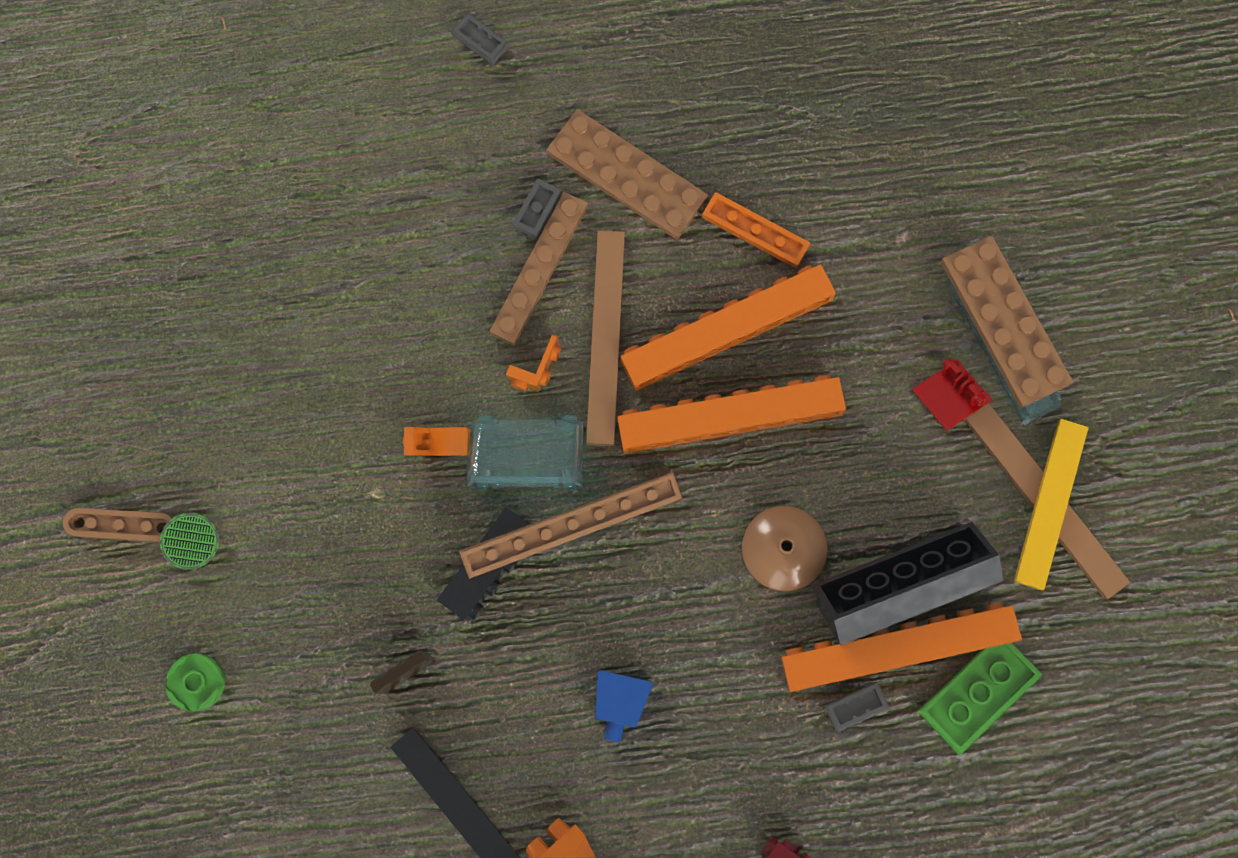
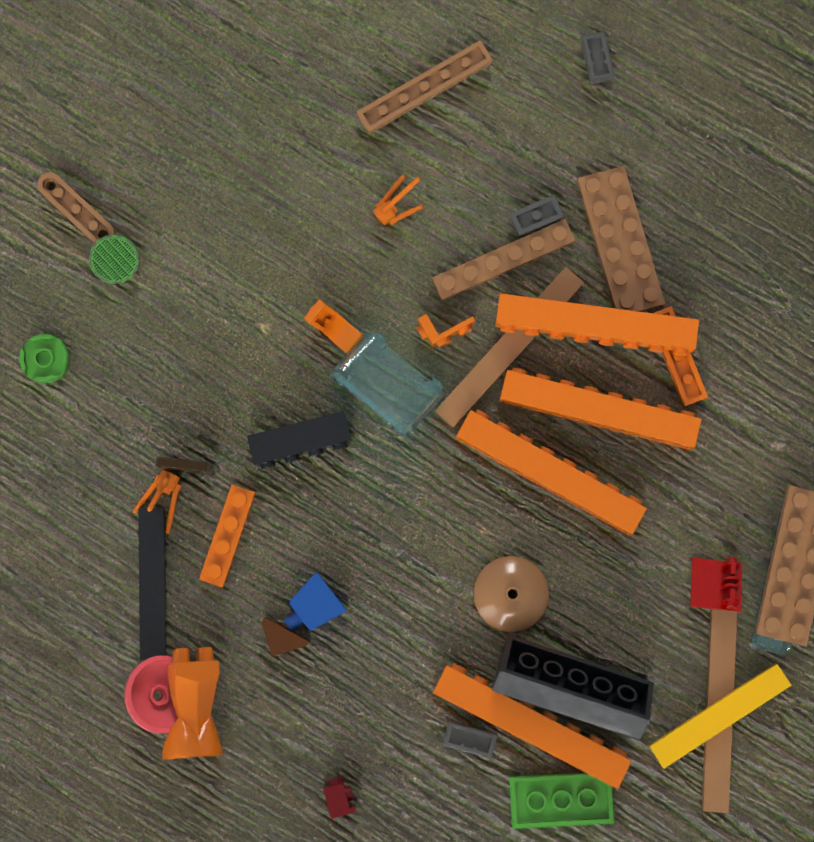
camera: 30 degrees right, 5 degrees up
(350, 177) = (424, 87): none -> medium nougat plate
(396, 704) = (163, 483): none -> orange plant
(401, 305) = (385, 208): none -> orange plant
(491, 705) = (227, 536): none -> orange plate
(570, 525) = (378, 459): medium nougat tile -> none
(615, 757) = (281, 638): none -> reddish brown slope
(664, 256) = (597, 324): none -> orange brick

